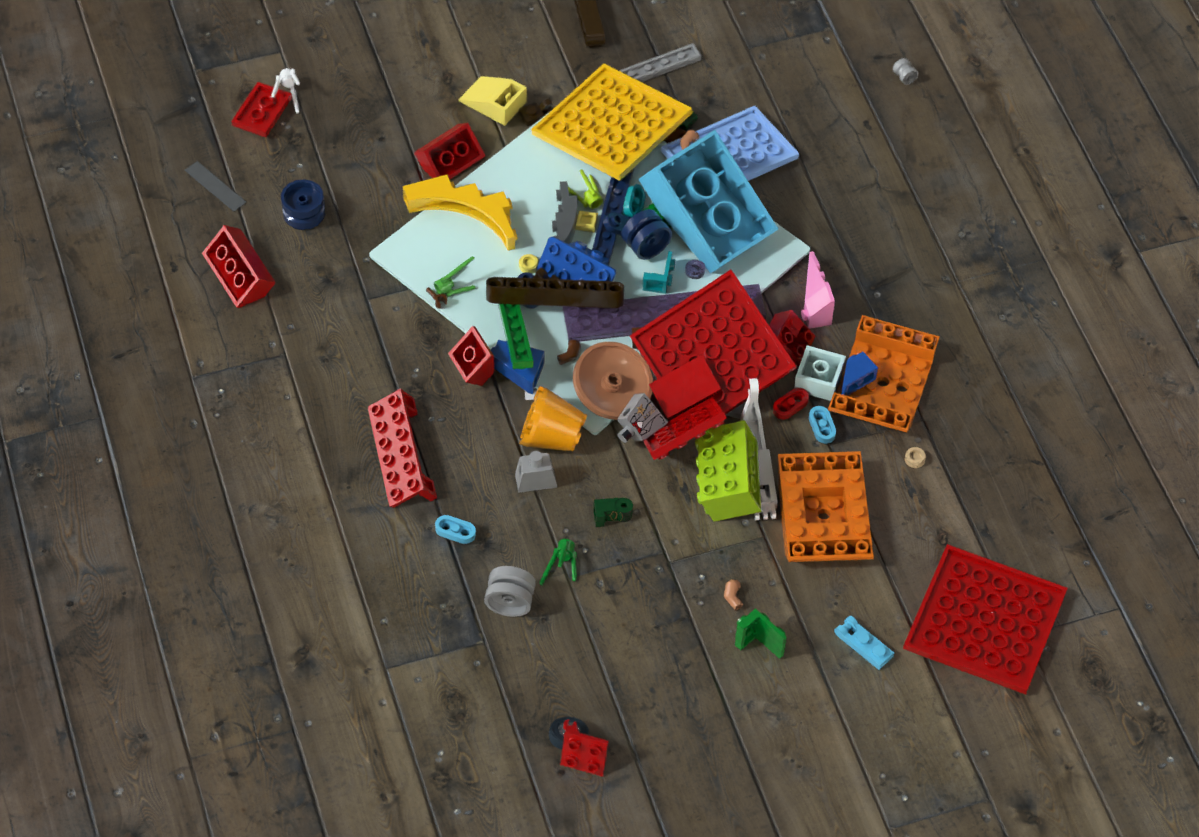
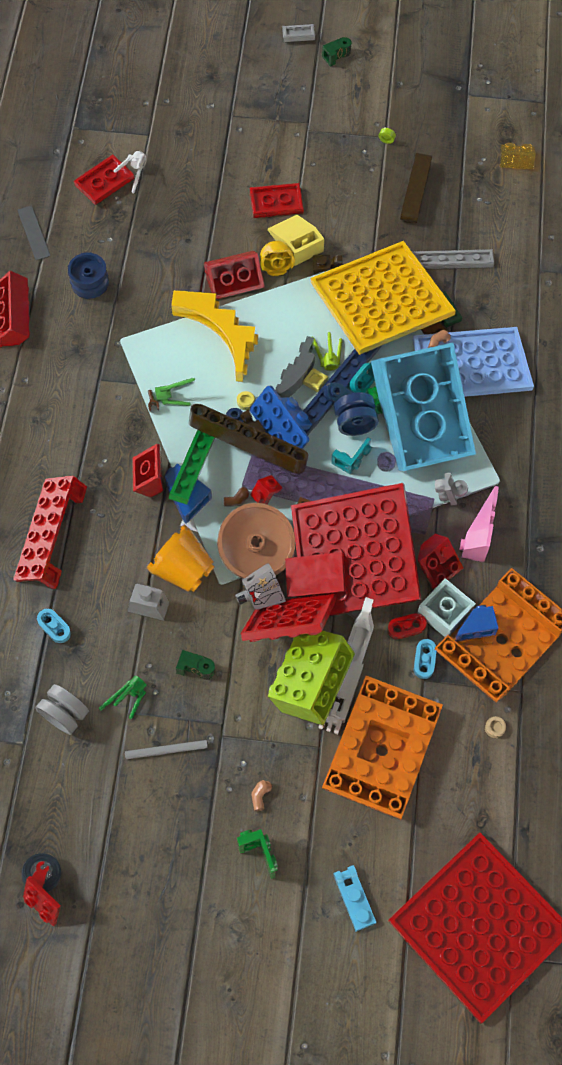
camera: 25 degrees right, 10 degrees up
(451, 70) = (276, 200): none -> red tile
(487, 122) = (276, 258): none -> yellow cylinder
(595, 332) = (265, 489): none -> red bracket
(623, 592) = (166, 749): none -> light grey bar
(768, 269) = (449, 489): none -> light grey hips

